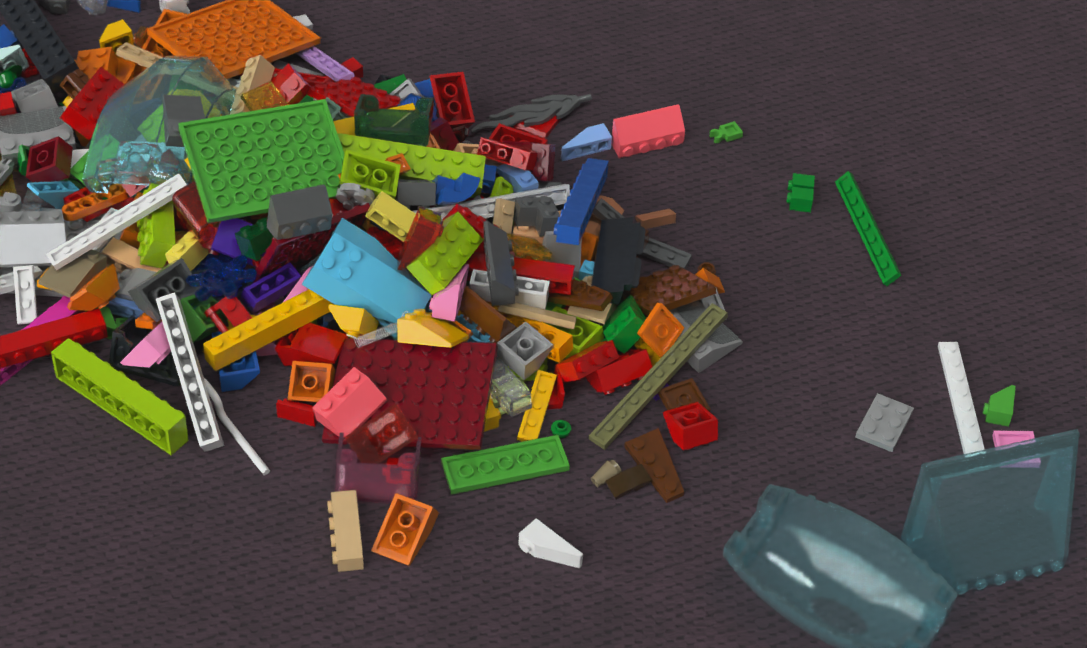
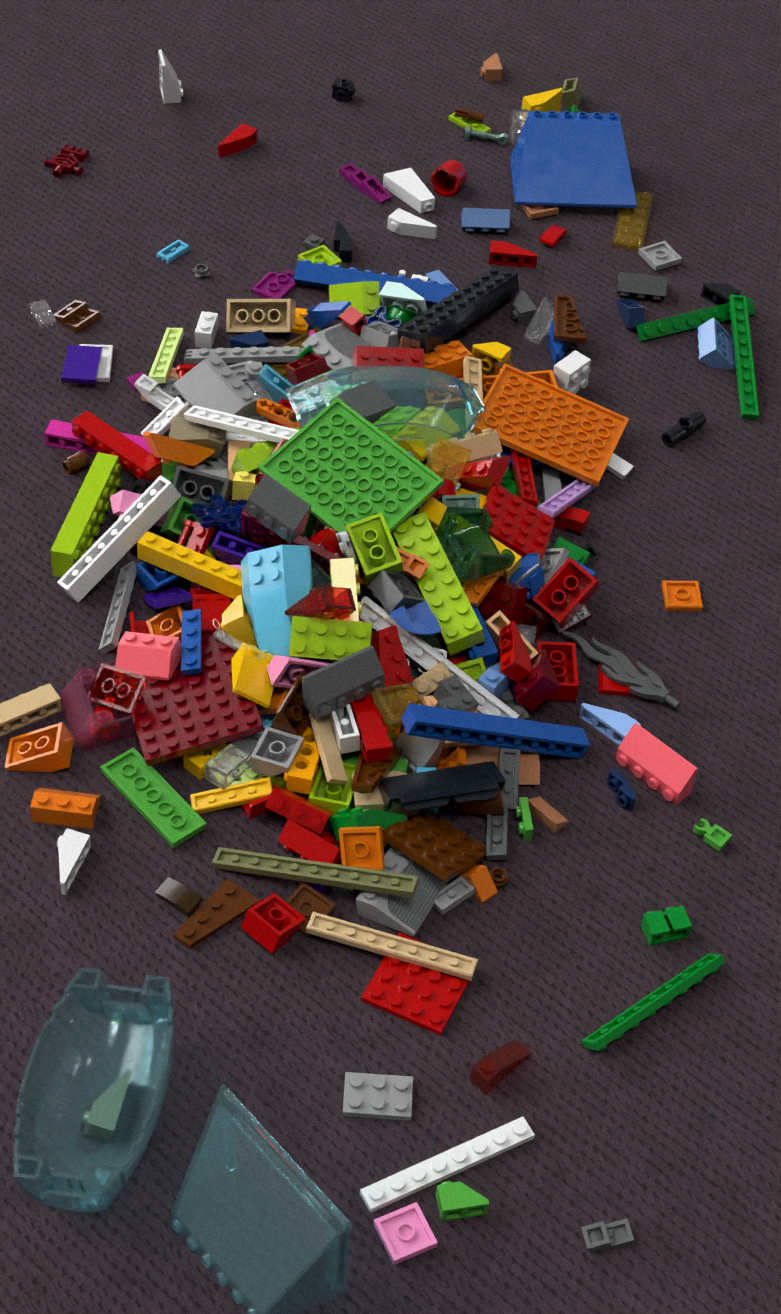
camera: 65 degrees right, 0 degrees up
(27, 385) = (76, 462): none -> reddish brown brick
(234, 431) = (99, 601): white piece -> none
(260, 417) = (118, 608): none -> light grey plate
(275, 370) = (167, 597): none -> dark purple tile
(346, 360) = (191, 642): none -> blue plate
(469, 49) = (682, 596): none -> orange tile
(483, 530) = (64, 808): none -> orange slope
(562, 432) = (219, 829): green plate -> none
(607, 470) = (182, 875): dark tan cone -> none
(660, 231) = (525, 825): none -> bright green plate
(661, 162) = (625, 793): none -> dark blue slope
(749, 358) = (392, 946): none -> tan tile
(787, 358) = (415, 993): none -> red plate
(839, 593) = (105, 1110): none -> sand green slope
(889, 338) = (498, 1065): none -> clear red slope
(1055, 334) = (606, 1236): none -> dark grey slope

